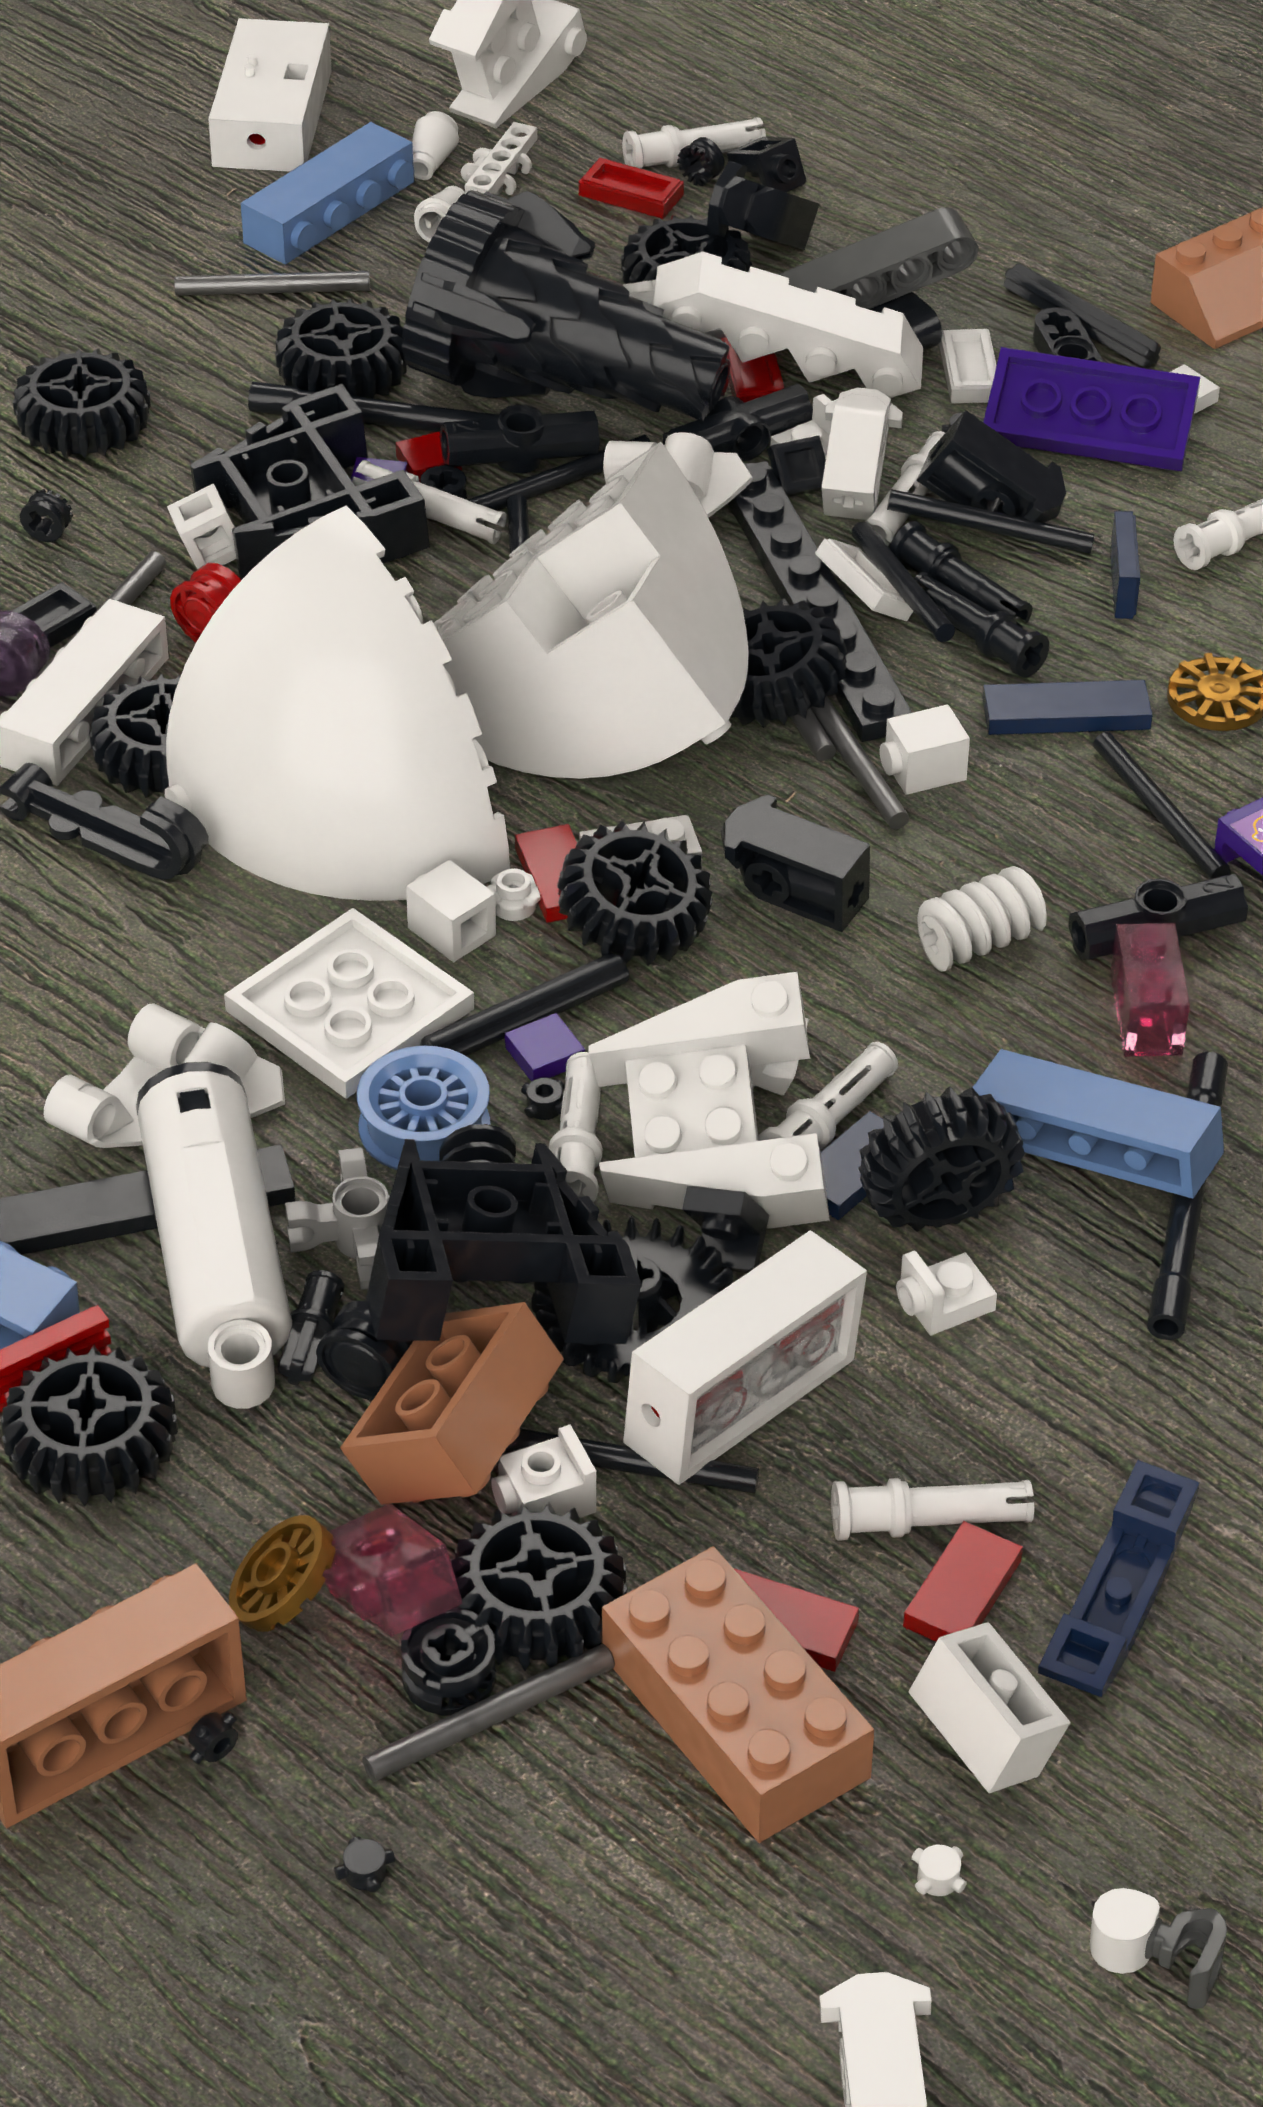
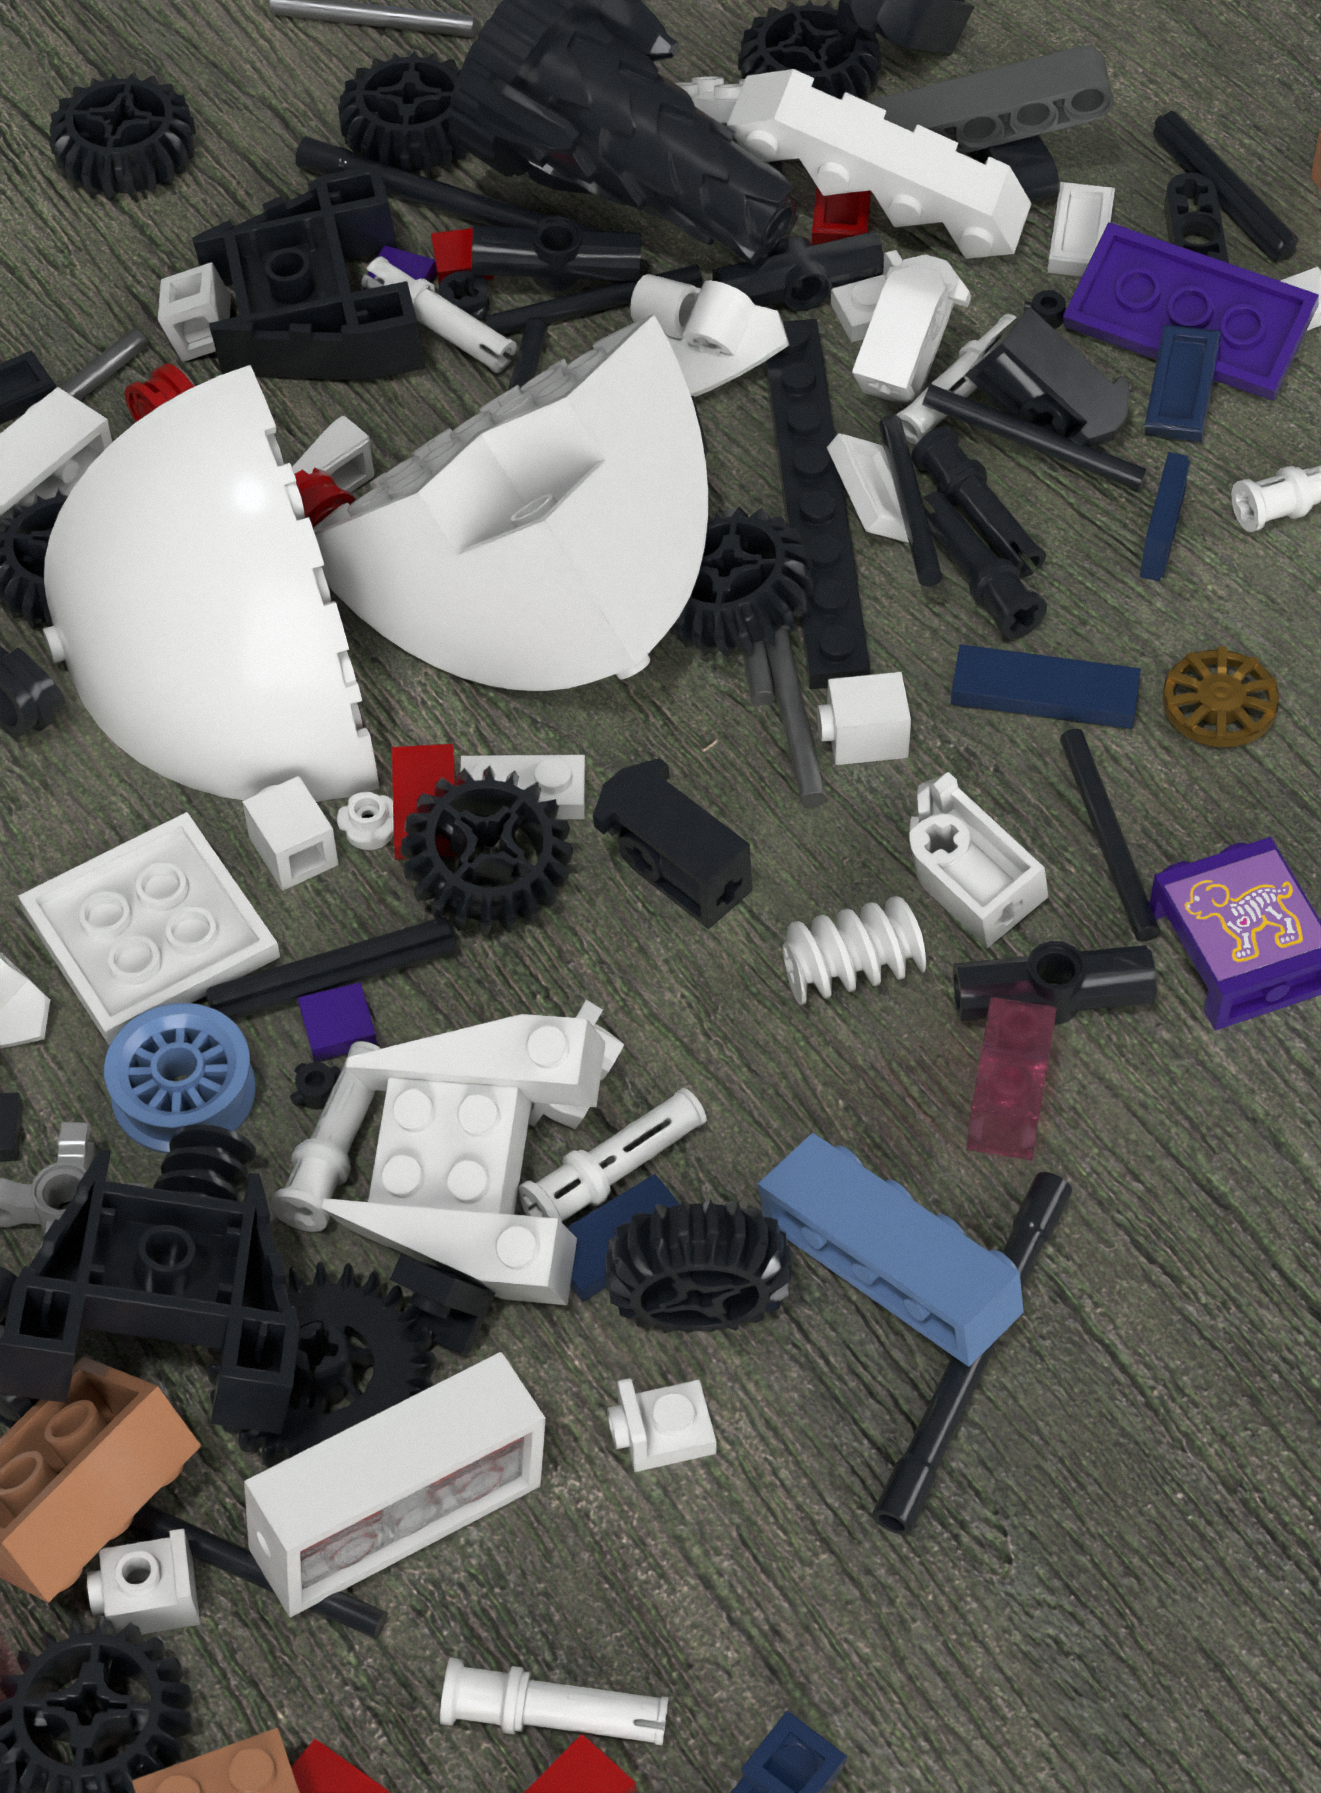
camera: 15 degrees right, 10 degrees up
(41, 505) = (40, 267): black bush -> none
(798, 465) = (843, 330): black tile -> none
(1057, 838) = (972, 862): none -> white piece
(1102, 464) = (1182, 383): none -> dark blue tile

